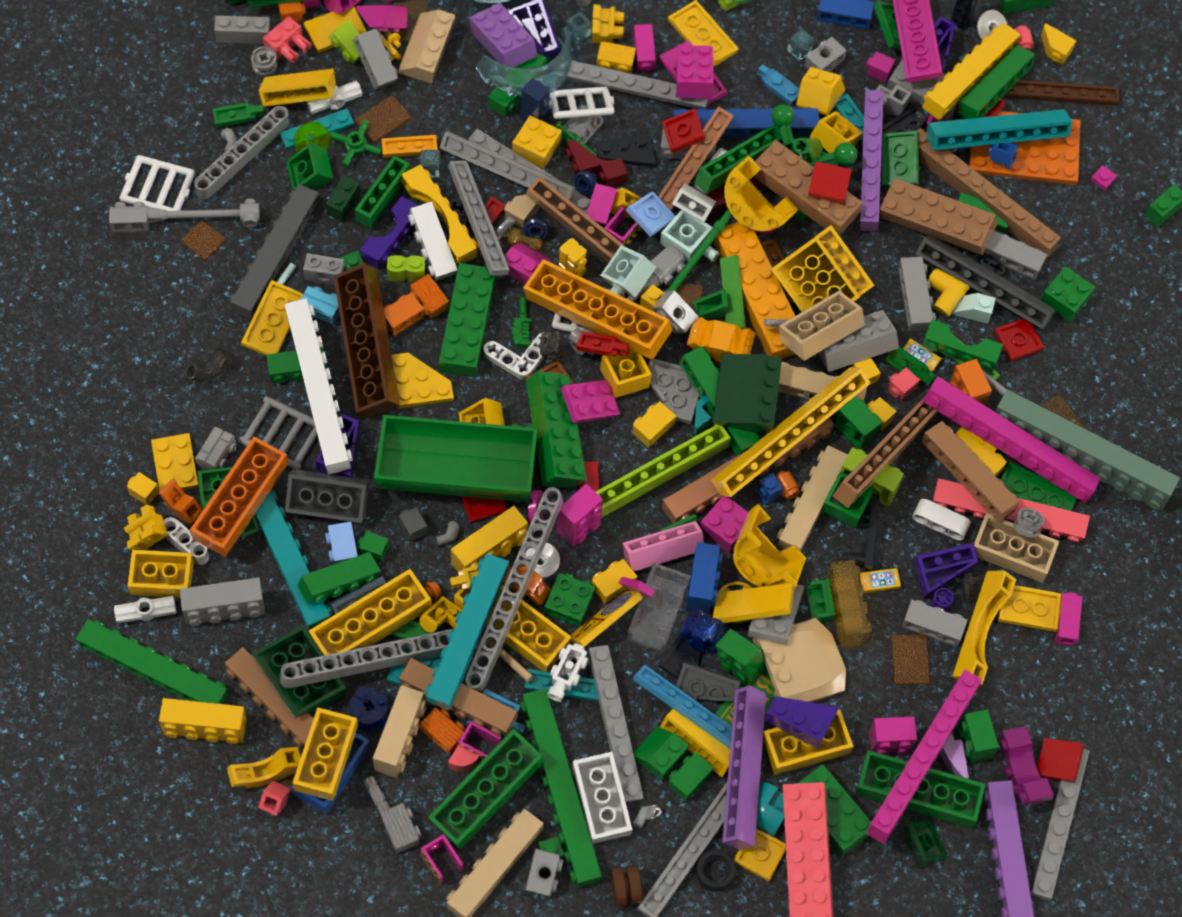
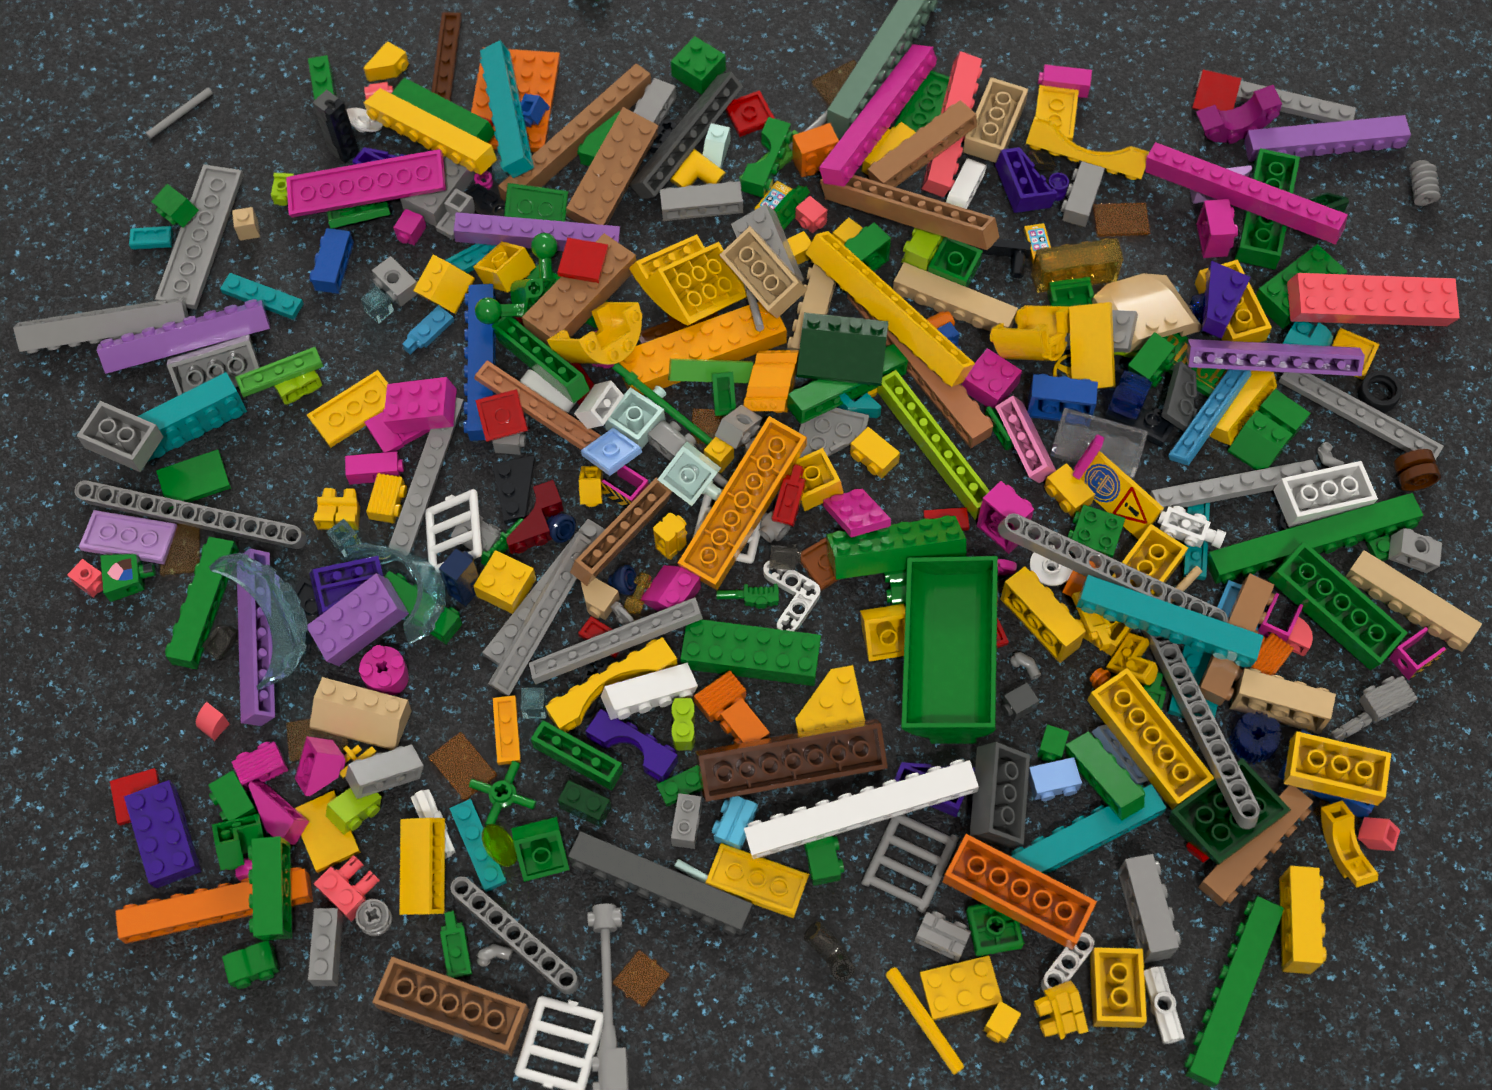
camera: 85 degrees left, 0 degrees up
(151, 434) = (924, 1020): none -> yellow axle
(179, 503) = (1020, 971): orange brick -> none
(189, 110) = (451, 1006): none -> medium nougat brick
(461, 59) = (375, 664): none -> dark pink brick
(601, 203) = (597, 505): dark pink brick -> none
(977, 736) = (1213, 148): green brick -> none
(1028, 521) = (977, 97): light grey wheel -> none
(1103, 177) = (553, 31): dark pink plate -> none

